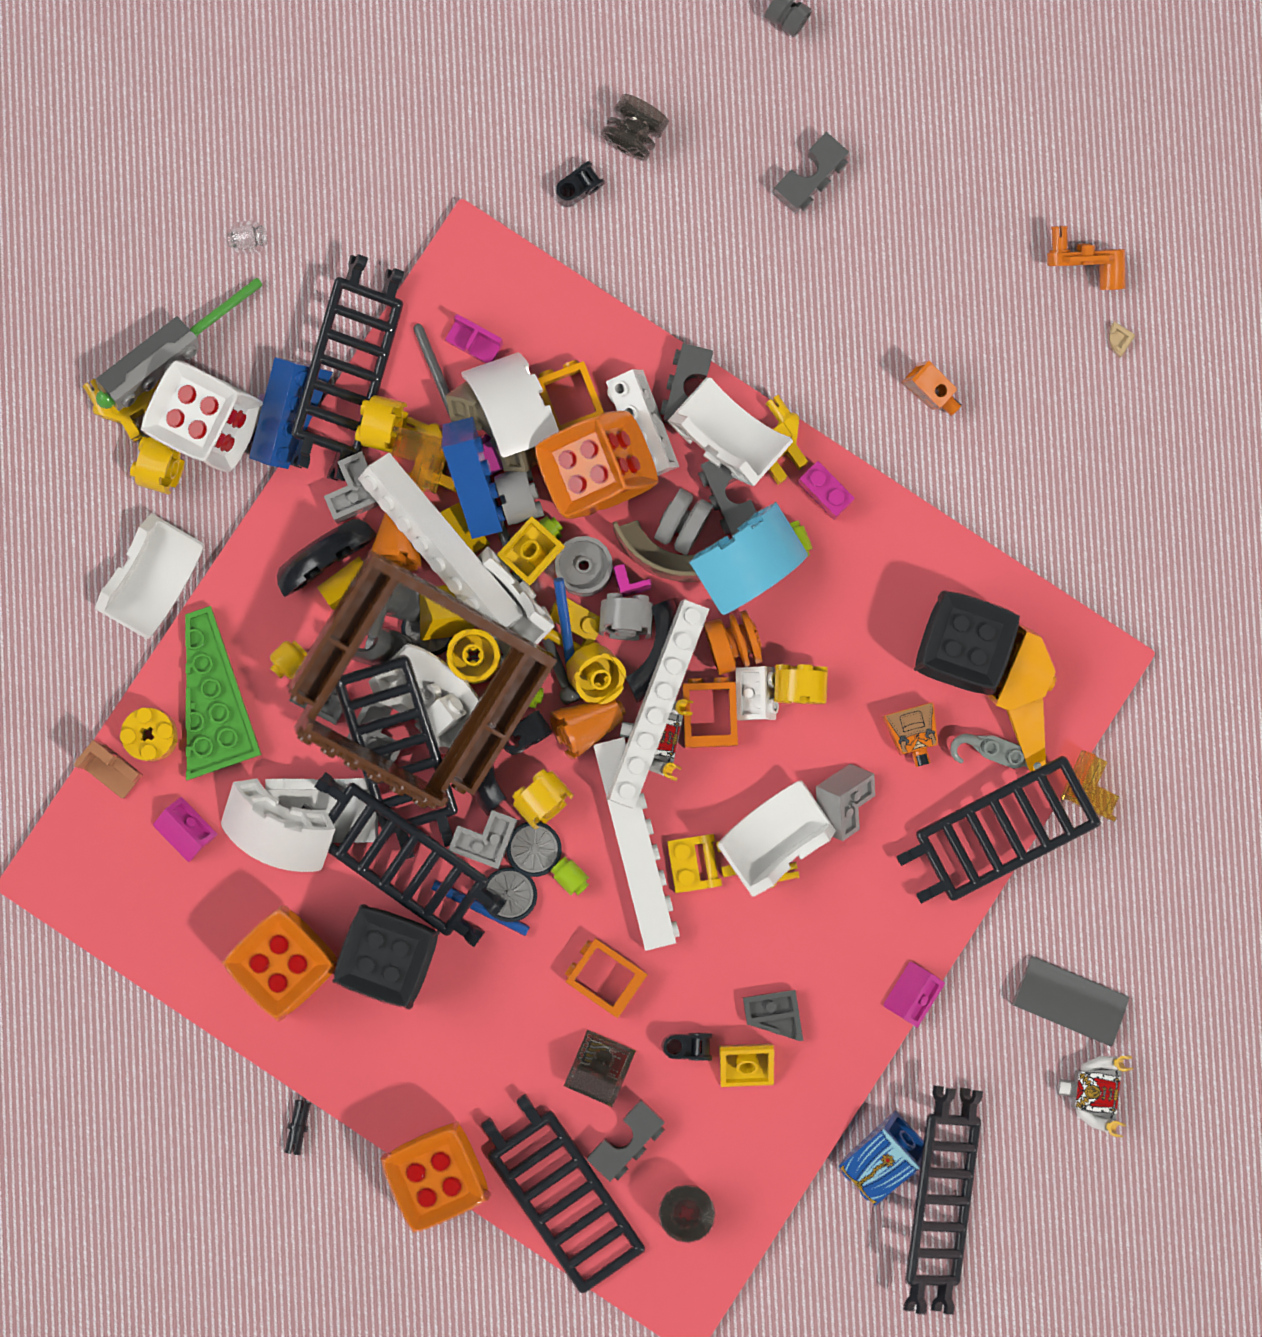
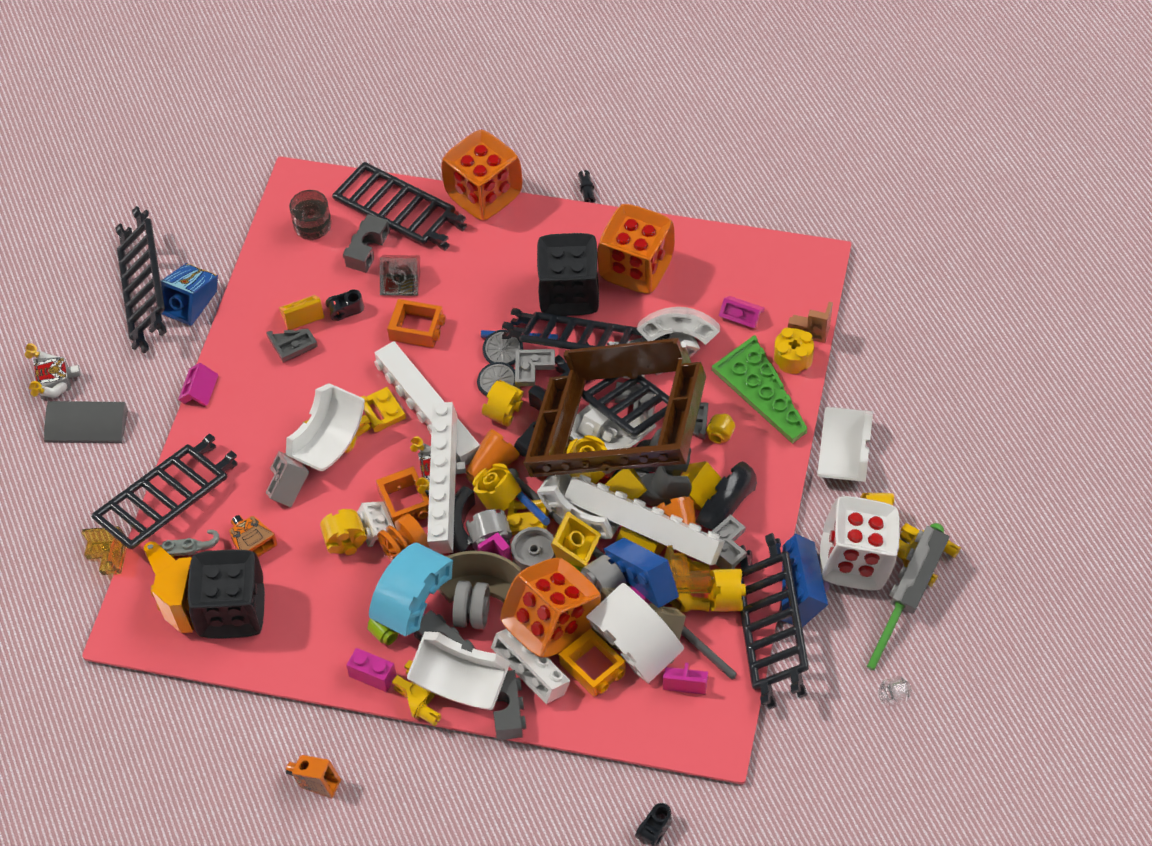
camera: 160 degrees right, 30 degrees down
(570, 876) = (464, 370): lime brick -> none

